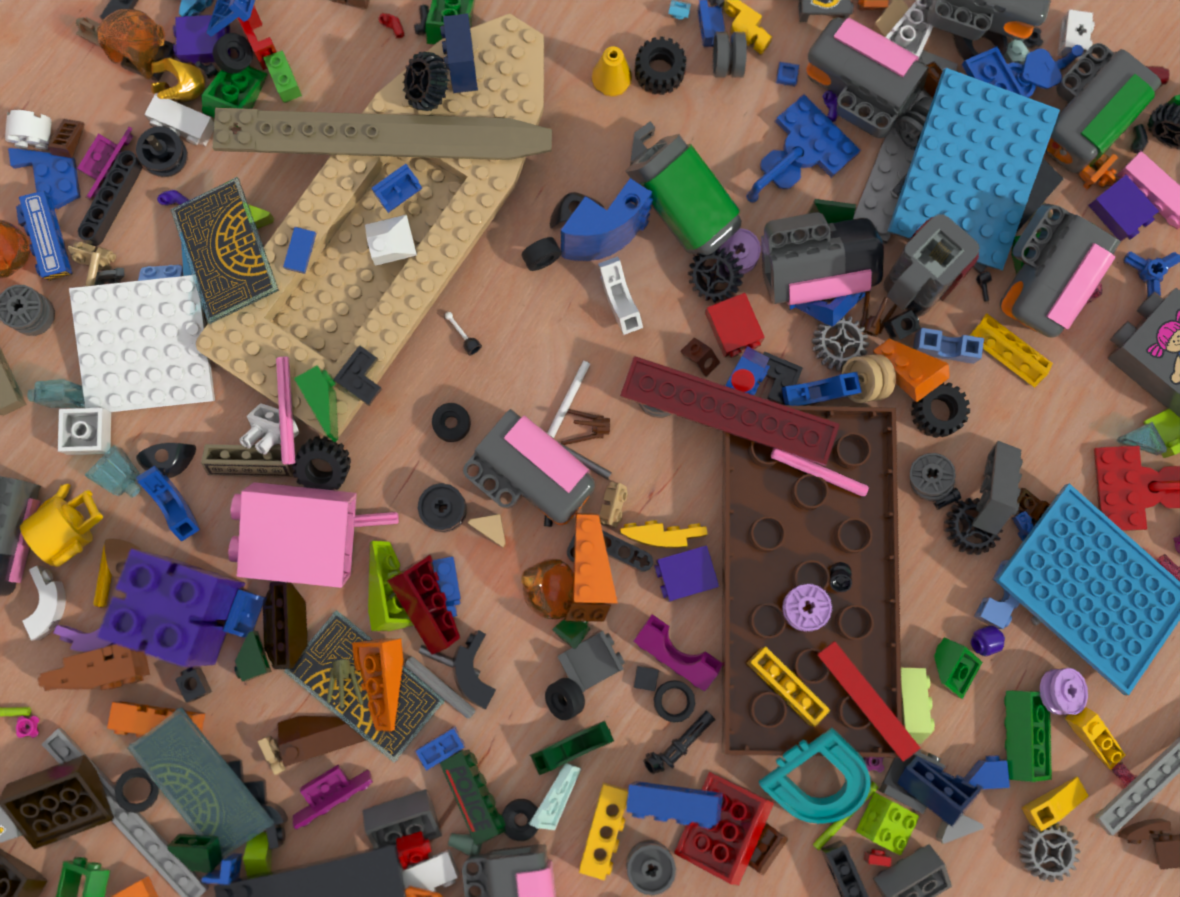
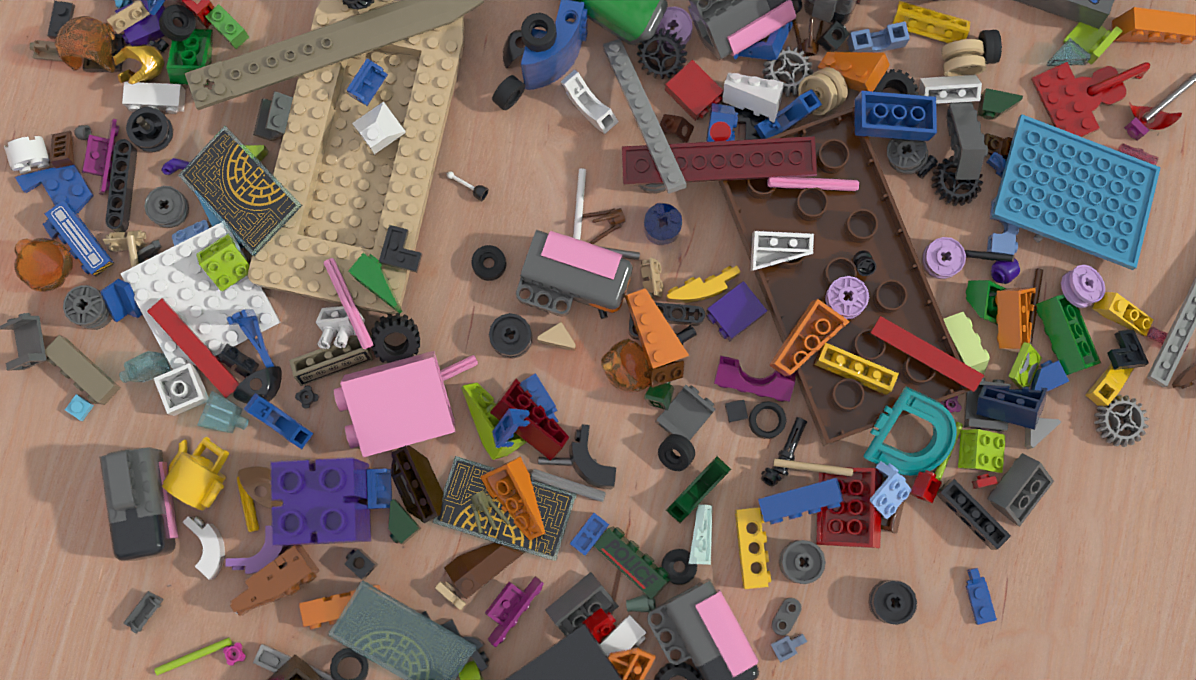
camera: 15 degrees left, 0 degrees up
(58, 315) = (120, 300): none -> blue panel
(94, 127) = (82, 132): none -> dark grey hinge
(113, 393) = (193, 347): none -> red tile
(149, 416) = (231, 355): none -> black hinge
(158, 238) = (156, 203): none -> dark grey wheel
(176, 317) = (223, 262): none -> lime bracket
(180, 394) = (250, 326): none -> blue hinge
(185, 28) = (128, 16): none -> tan hinge
(203, 488) = (301, 396): none -> black plate
(290, 186) = (273, 116): none -> dark grey panel
(299, 250) = (305, 165): blue tile -> none
(398, 604) = (508, 425): none -> blue hinge
(594, 191) = (538, 20): none -> black tyre
(623, 577) = (686, 334): none -> black pin
(646, 440) = (662, 213): none -> clear blue brick
(670, 334) = (644, 116): none -> light grey plate
(707, 775) = (813, 467): none -> tan bar
(748, 634) = (808, 336): none -> orange wedge
(753, 526) = (778, 247): none -> white wedge
(773, 832) = (891, 492): none -> light blue bracket
(795, 353) = (753, 93): none -> white wedge
(813, 839) = (926, 486): none -> red brick
(915, 598) = (954, 259): none -> lavender wheel
(934, 434) = (895, 116): none -> blue brick
(968, 753) = (1025, 366): none -> lime piece
(975, 619) = (989, 256): none -> black piece
(976, 695) = (1013, 317): none -> orange wedge
(1003, 427) = (951, 88): none -> white brick
(1007, 683) = (1035, 299): none -> reddish brown bar
(1030, 400) = (963, 58): none -> tan wheel
(1047, 460) = (996, 103): none -> dark green slope
(1062, 398) = (992, 45): none -> black tyre
(1088, 781) = (1130, 352): none -> black plate

